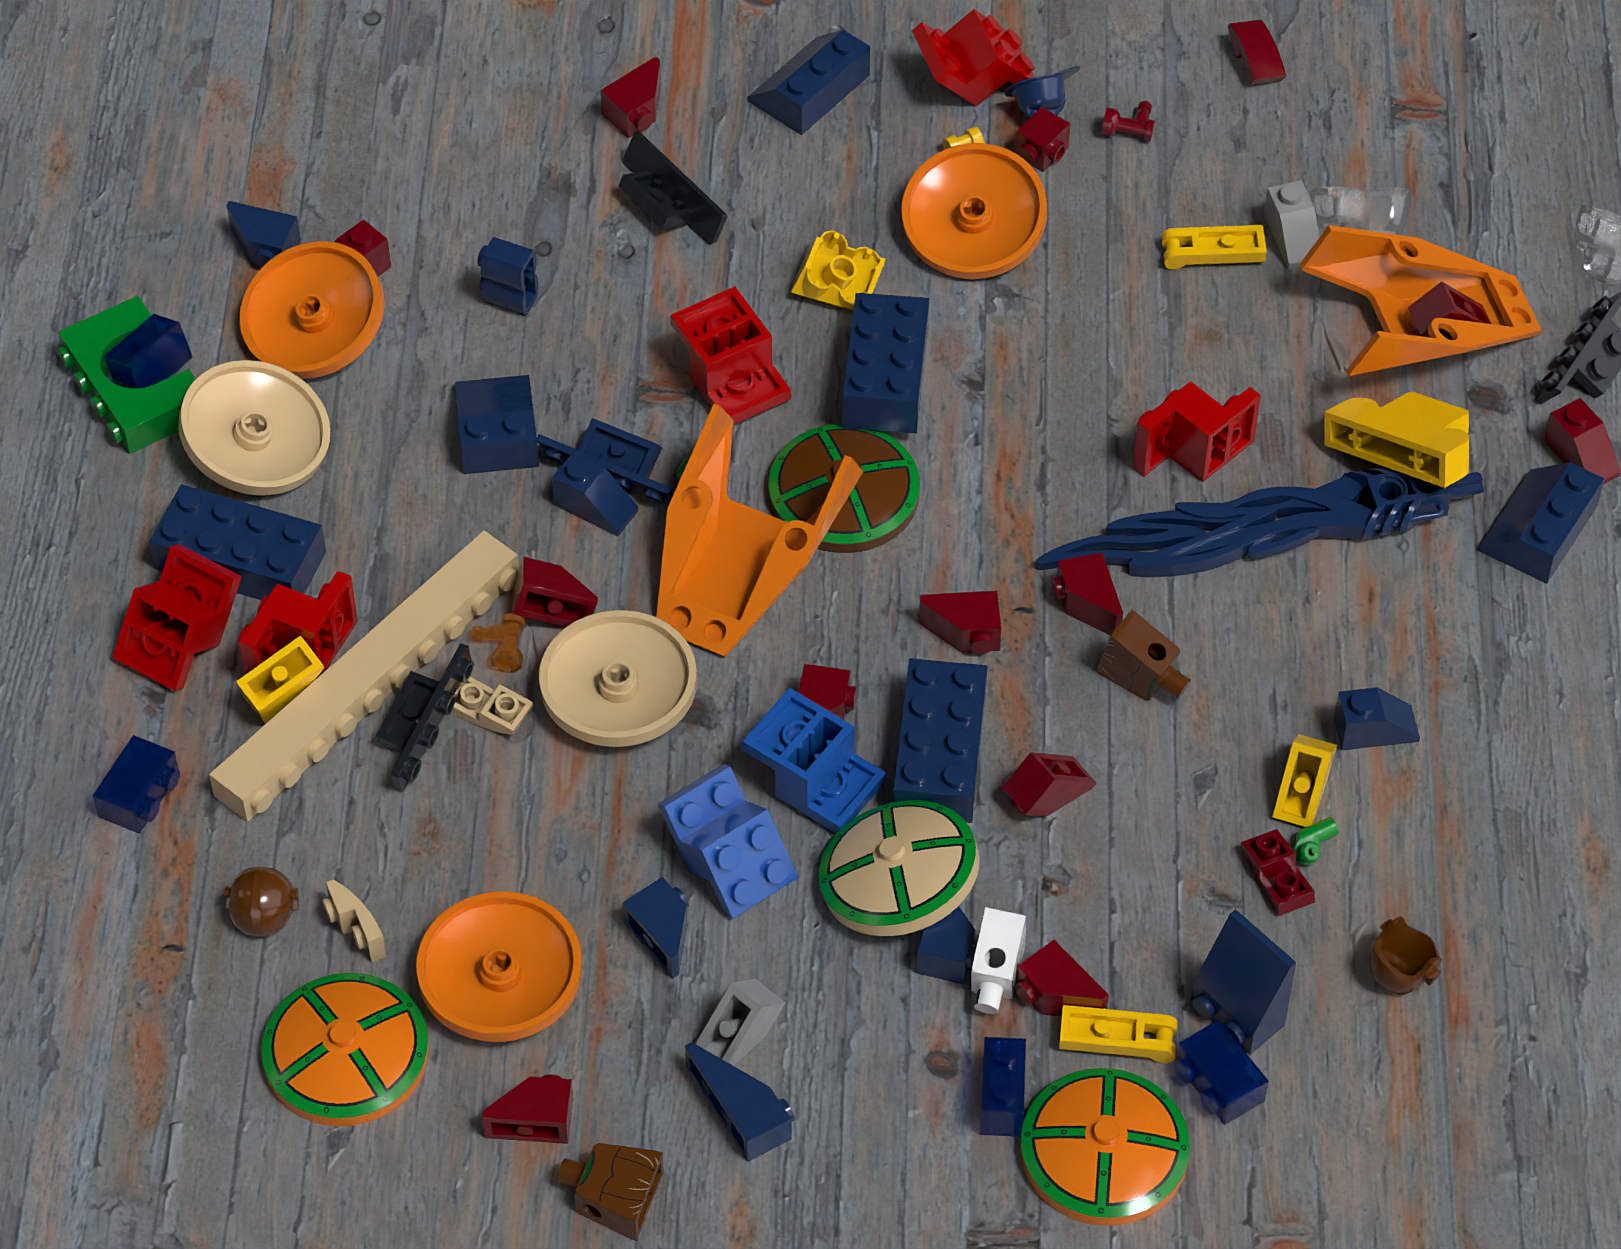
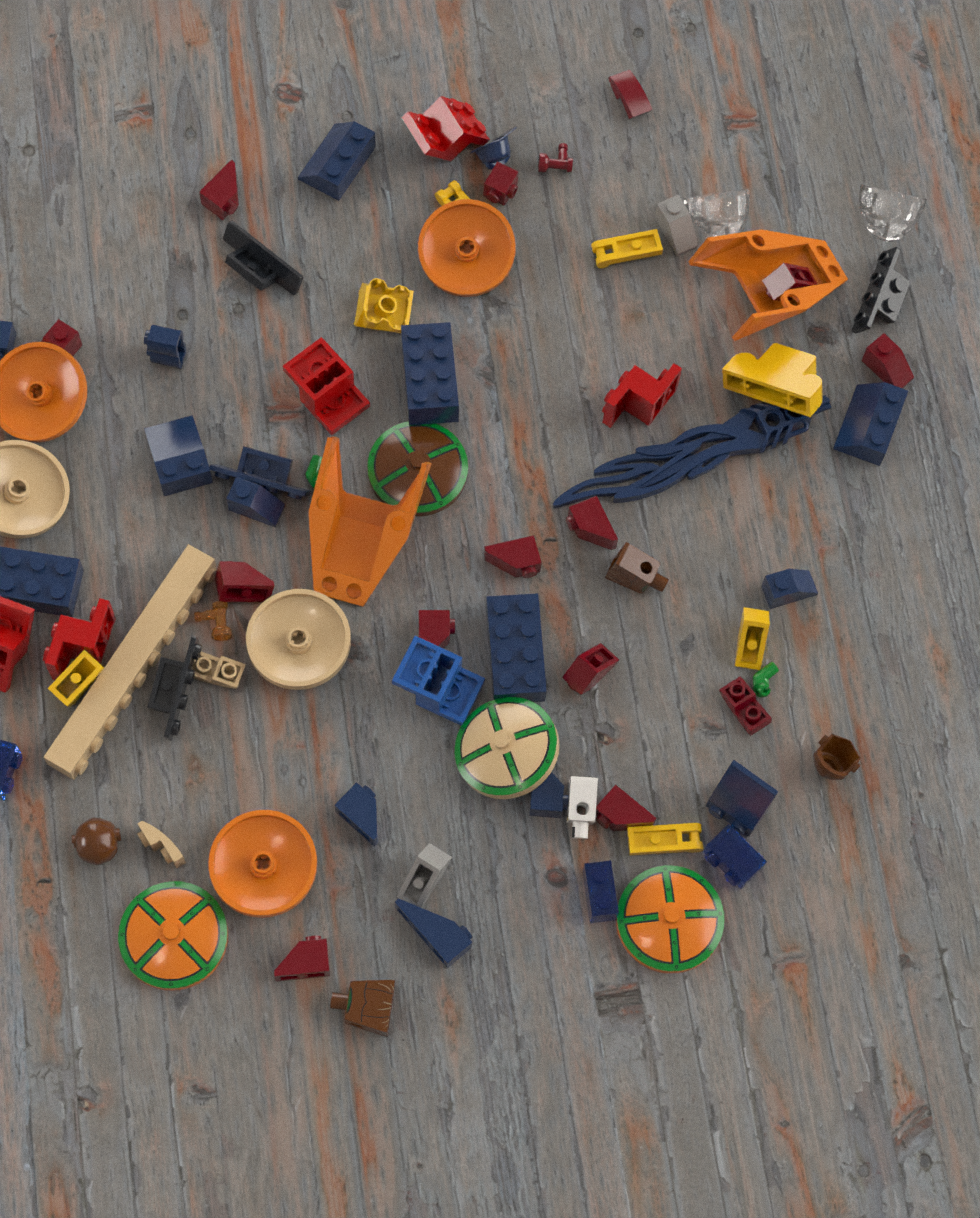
camera: 15 degrees left, 15 degrees up
(728, 840) = (393, 747): blue bracket -> none

